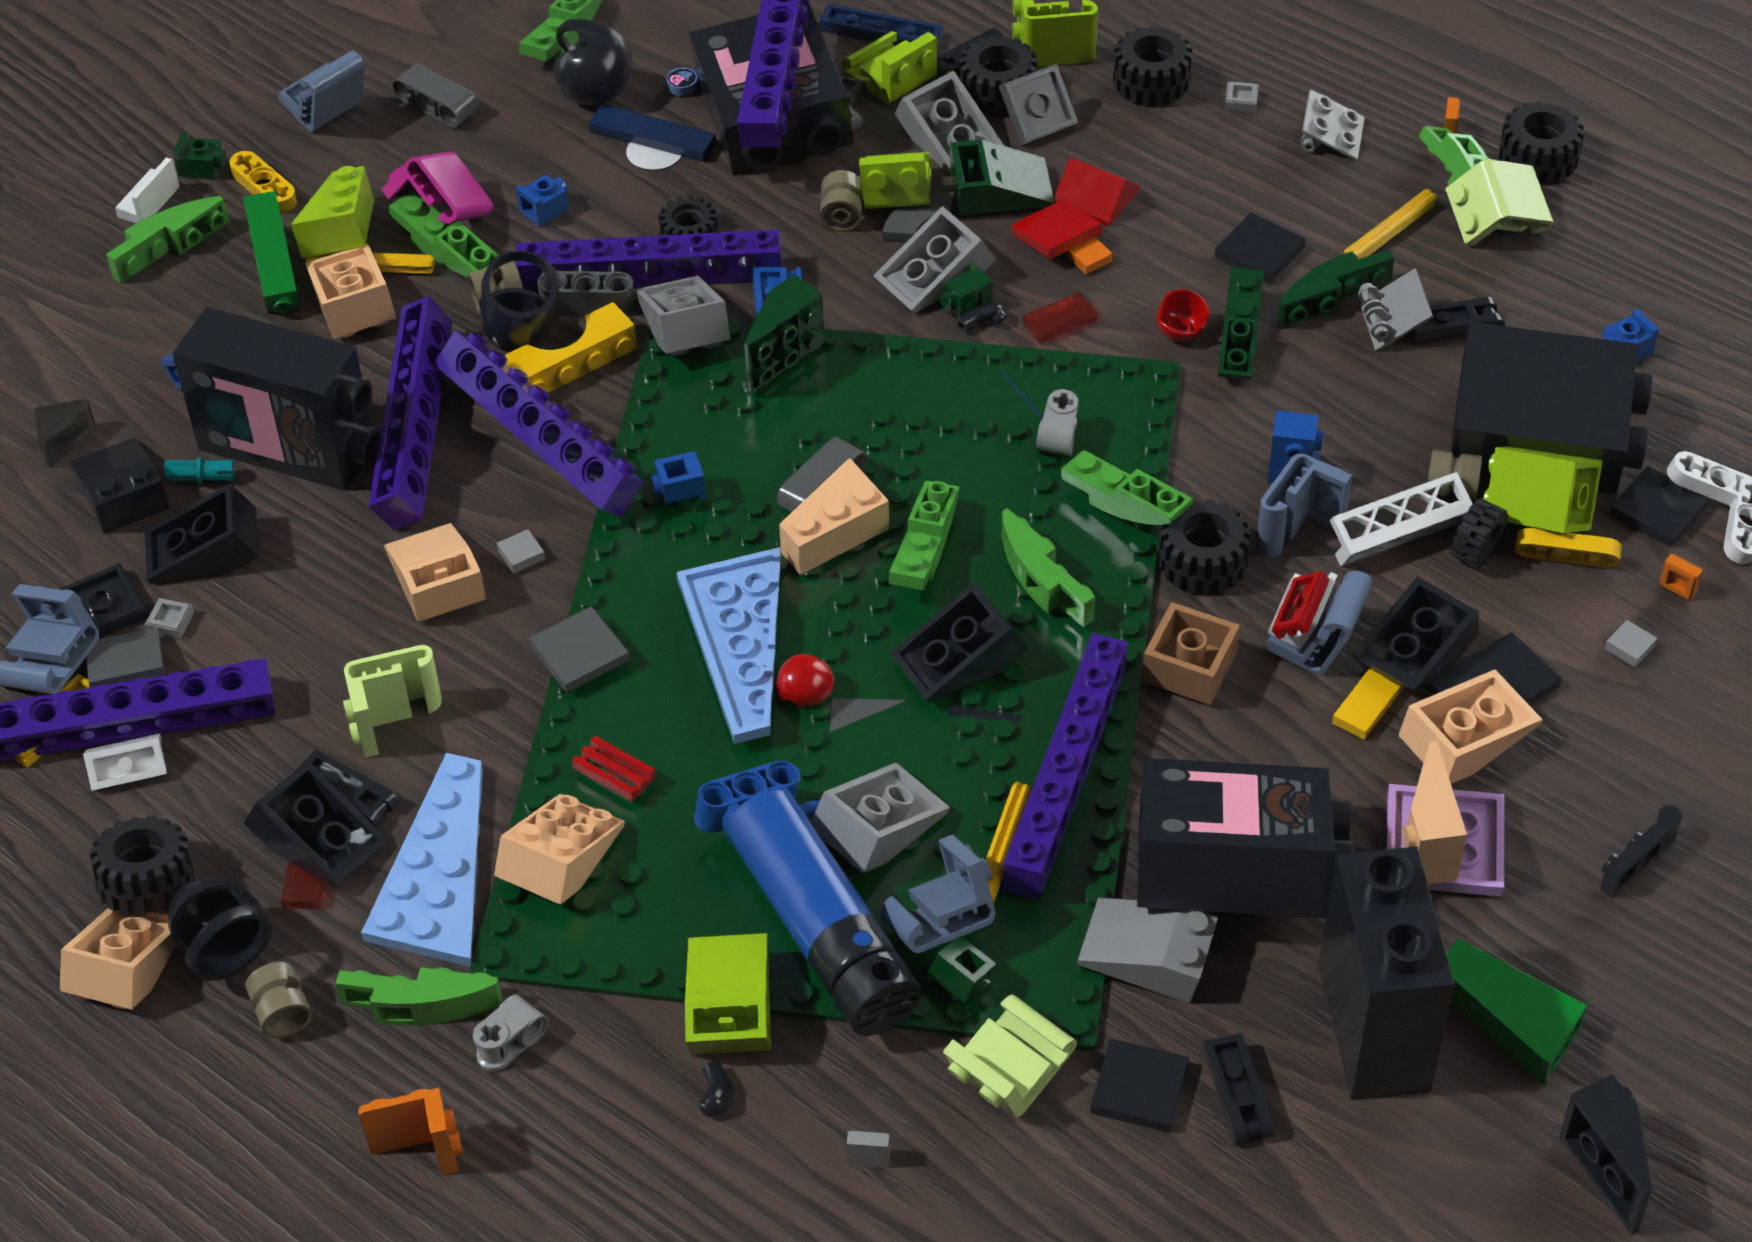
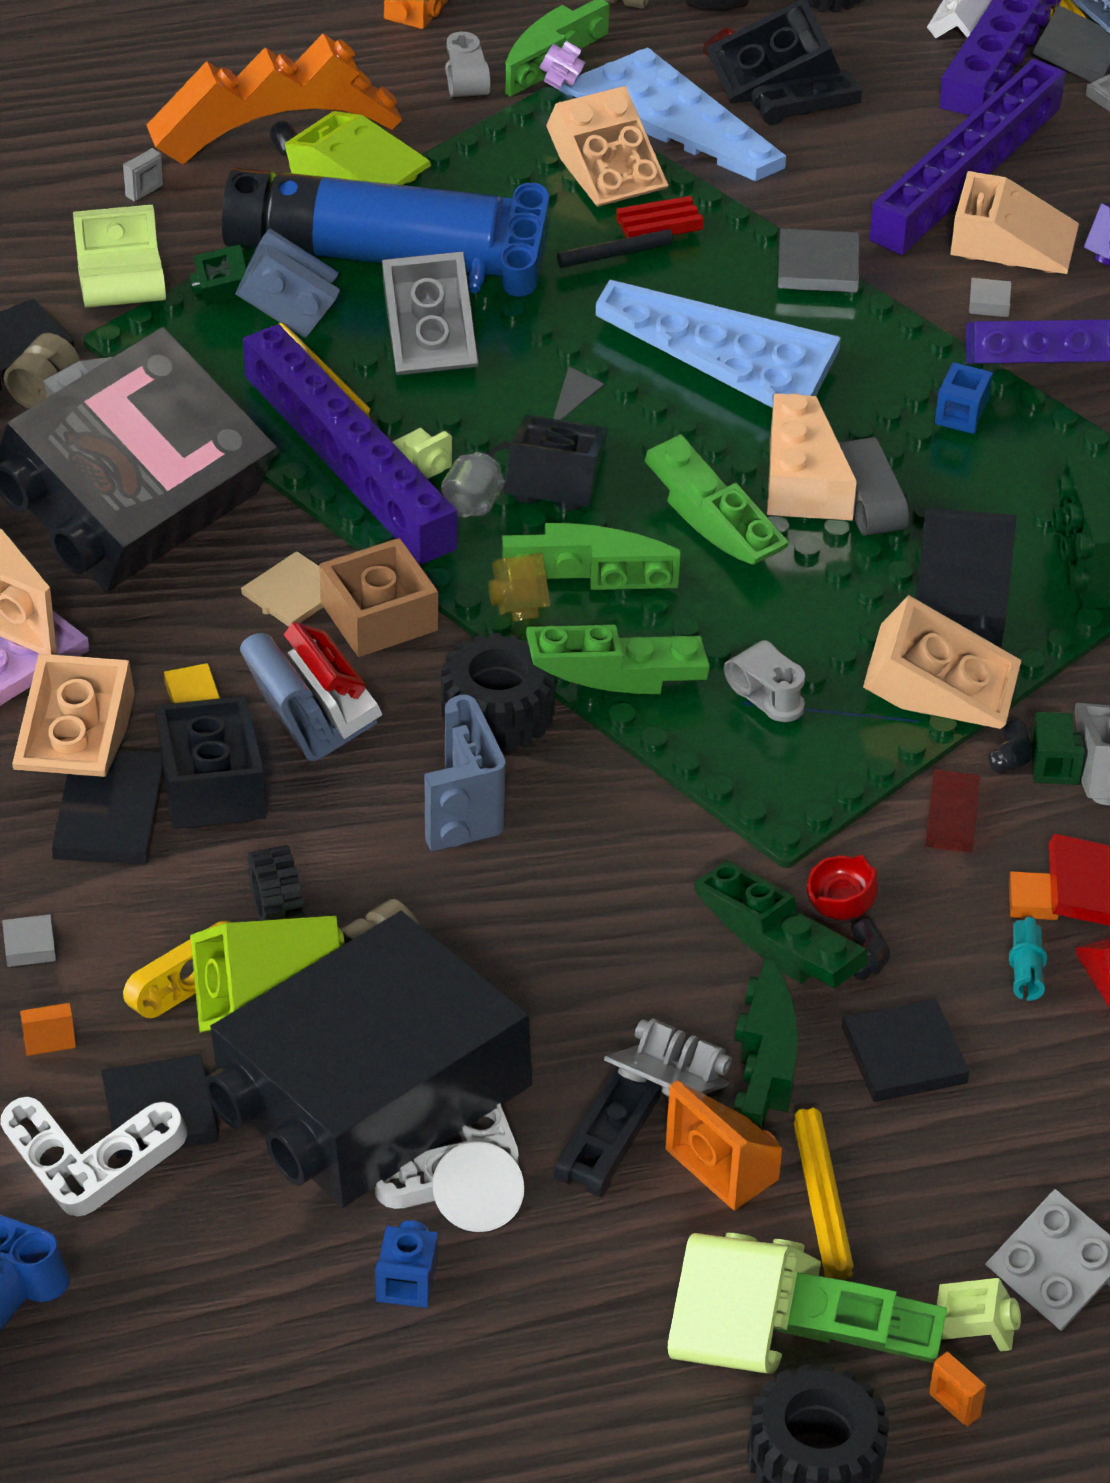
camera: 125 degrees right, 5 degrees down
(361, 629) = (976, 145): none -> dark purple brick
(382, 691) = (871, 119): yellowish green piece -> none
(463, 945) = (562, 65): none -> lavender gear
(667, 768) = (614, 248): none -> black bar
(708, 1085) = (270, 84): none -> orange arch
(804, 680) = (630, 356): red hair -> none
(899, 364) = (967, 568): none -> black slope
(967, 359) = (940, 668): none -> light nougat slope
(1027, 726) = (425, 452): none -> yellowish green bracket
(1036, 669) = (473, 484): none -> clear head
(1113, 575) = (519, 586): none -> clear yellow brick
(1144, 230) = (1028, 959): none -> teal axle
(1173, 1016) = (41, 360): none -> dark tan wheel
(1211, 731) = (287, 589): none -> tan piece
(1216, 286) = (877, 949): none -> black arm
(1293, 435) = (543, 822): blue brick -> none
(1399, 136) = (979, 1310): none -> yellowish green bracket
(1404, 531) = (362, 846): white fence -> none
(1418, 249) = (720, 1146): none -> orange slope

